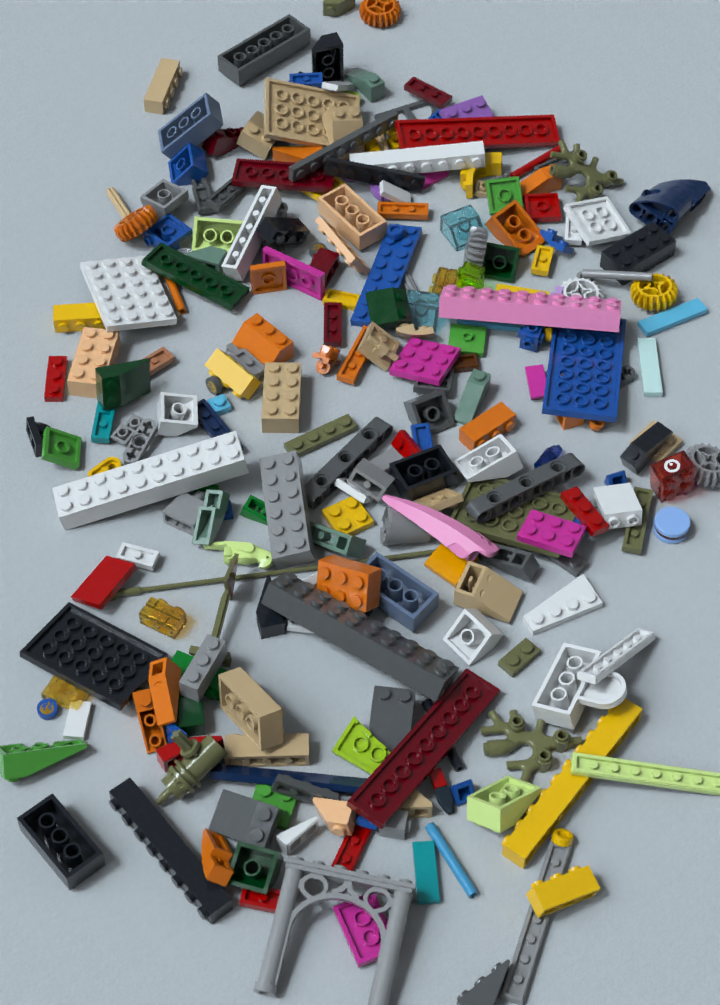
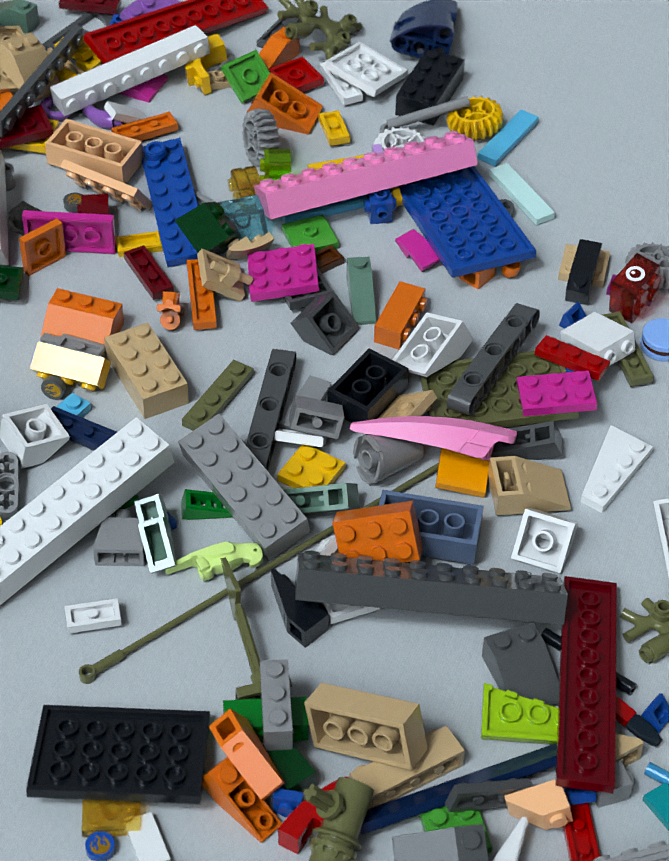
camera: 30 degrees left, 5 degrees down
(104, 582) = (72, 663): red tile -> none
(163, 617) = (174, 672): clear yellow brick -> none
(283, 231) = (28, 191): black brick -> none
(373, 174) = (89, 99): black plate -> none
(405, 444) = (325, 367): red plate -> none
(422, 435) = (337, 353): blue tile -> none
(456, 225) = (222, 123): clear light blue slope -> none
(501, 262) = (299, 139): dark green slope -> none
(519, 657) = (607, 541): olive plate -> none
(537, 161) = (257, 33): red piece -> none
(551, 453) = (486, 322): clear blue hinge -> none
(556, 241) = (333, 102): blue slope -> none
(573, 565) = (588, 421): flat silver plate -> none

